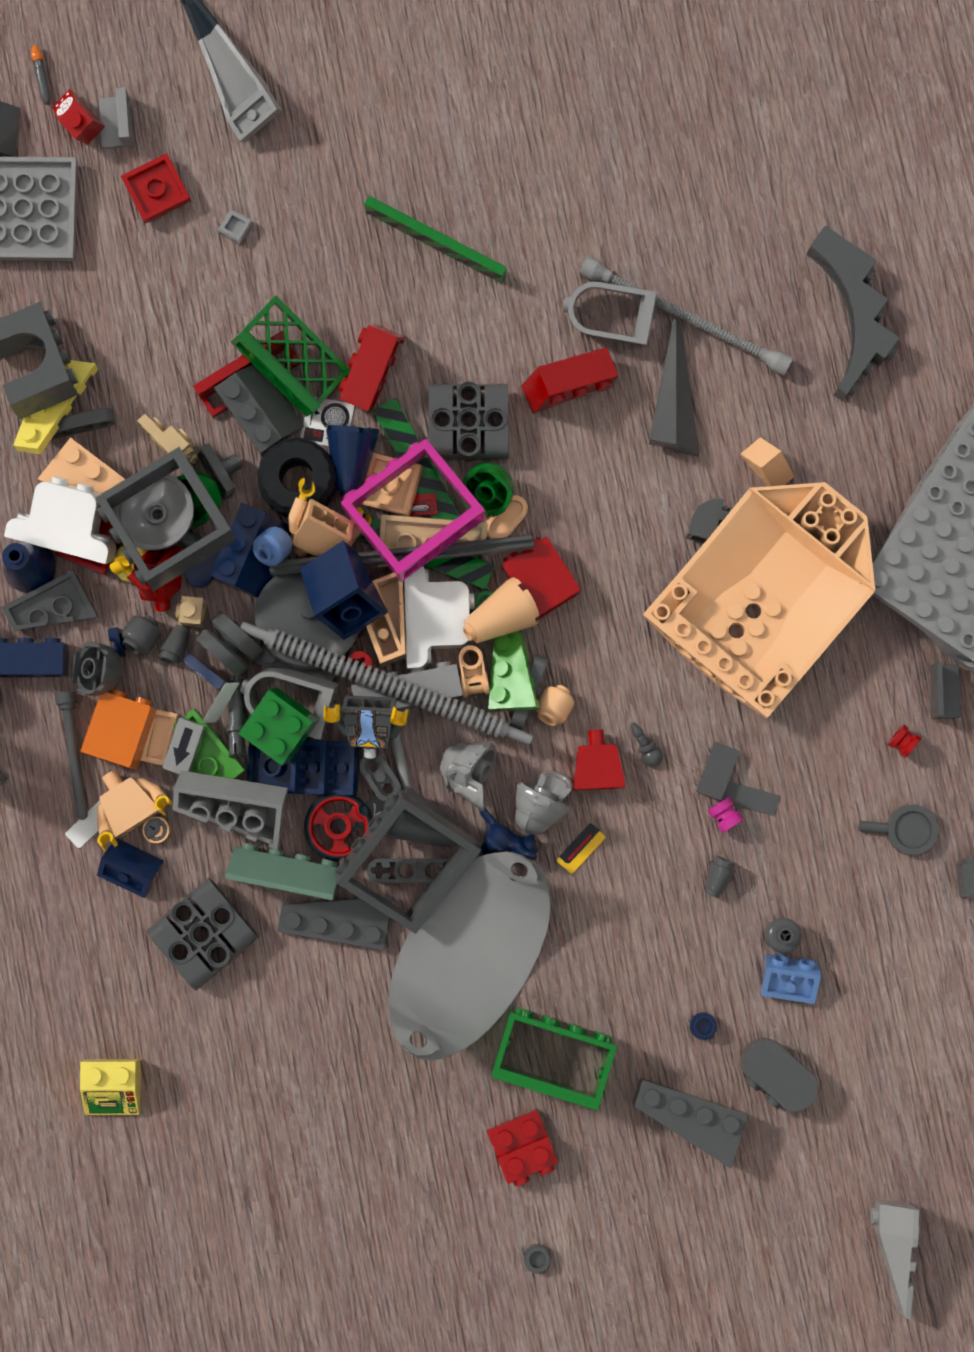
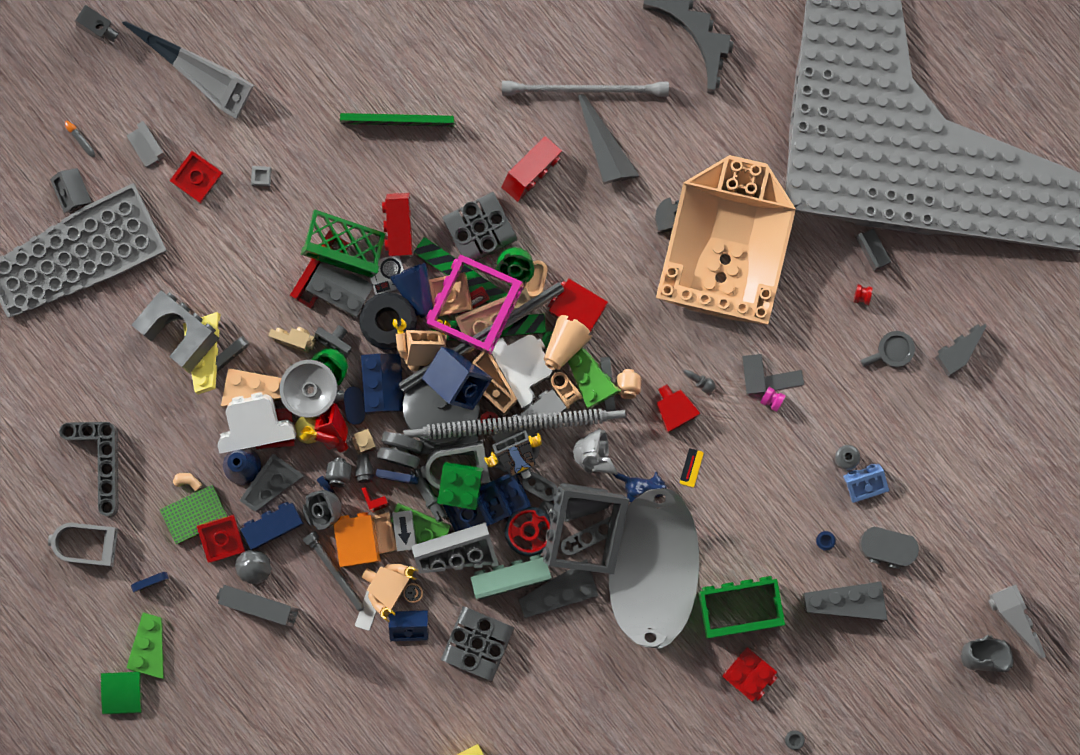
camera: 20 degrees left, 0 degrees up
(77, 117) = (119, 155): red slope -> none
(160, 694) = (376, 504): none -> red panel
(188, 557) = (350, 406): dark grey window -> none
(220, 702) = (413, 490): white sticker -> none
(272, 546) = (396, 373): medium blue head -> none
(401, 762) = (548, 470): light grey bar -> none
(543, 804) = (653, 451): light grey head -> none
(644, 319) = (559, 105): light grey window -> none
(719, 875) = (788, 440): dark grey cone -> none
(768, 463) = (687, 159): light nougat slope -> none
(841, 1280) = (987, 655): none -> dark grey piece

